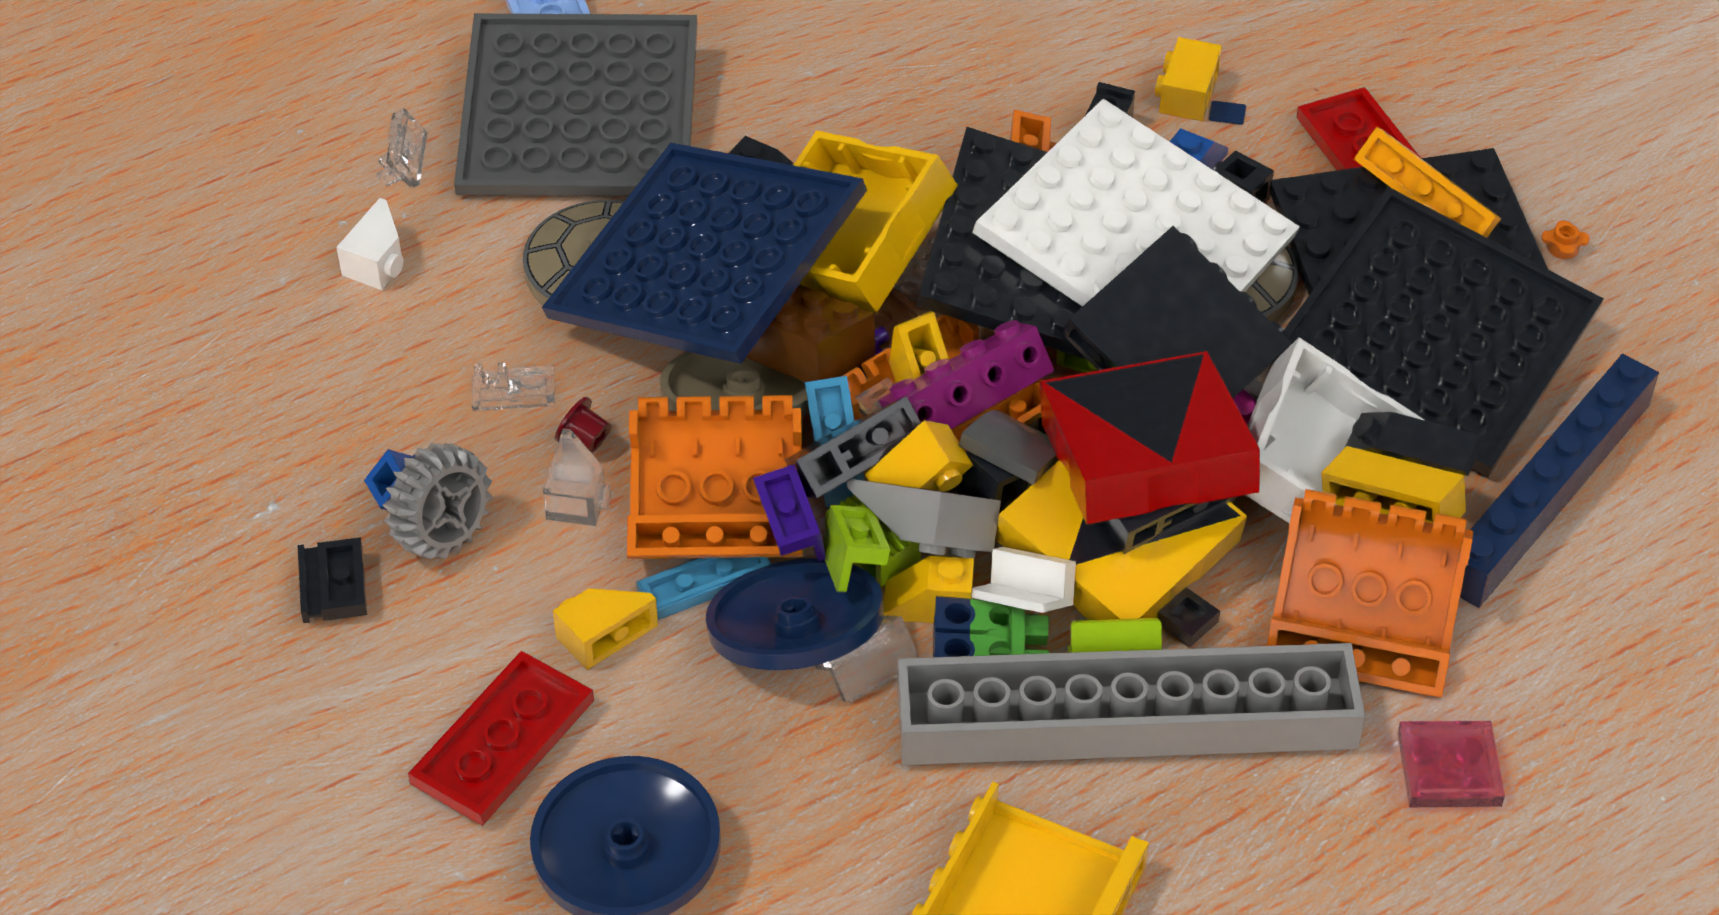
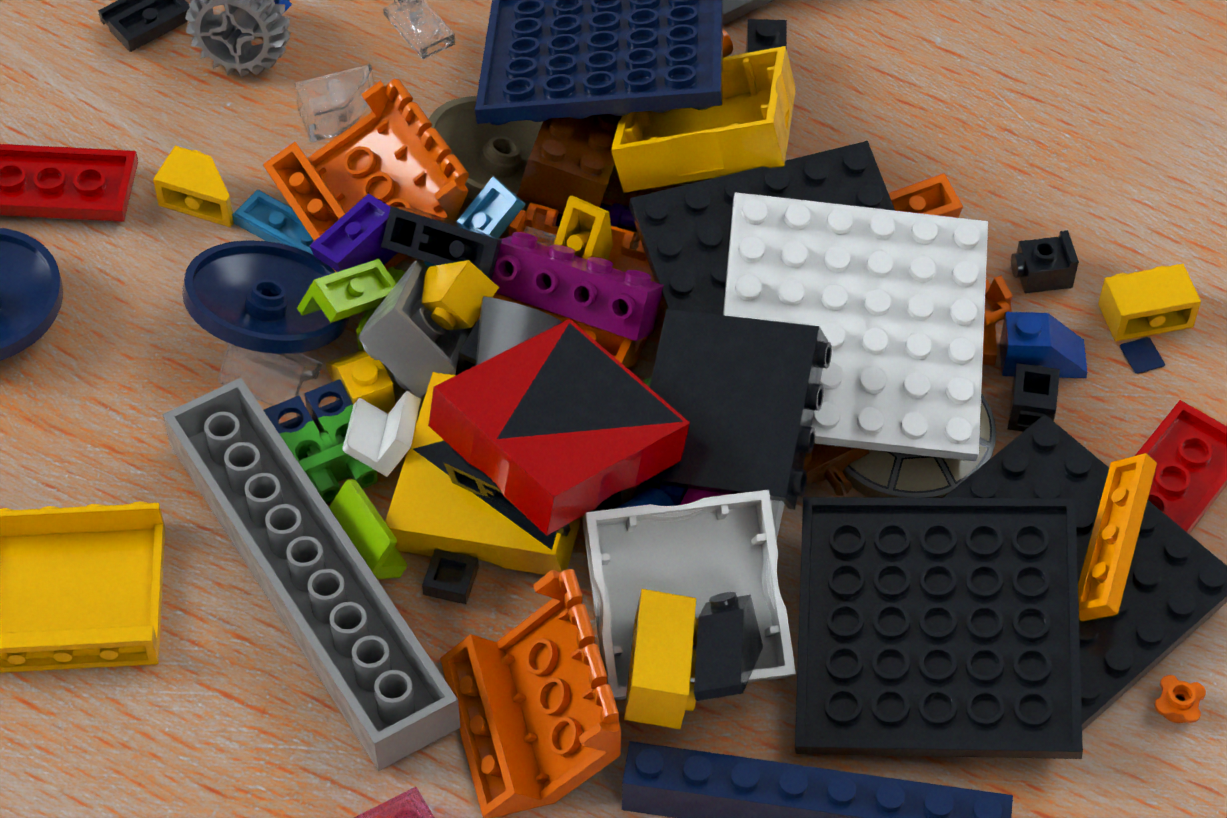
camera: 60 degrees right, 5 degrees up
(585, 424) = (396, 67): dark red piece -> none

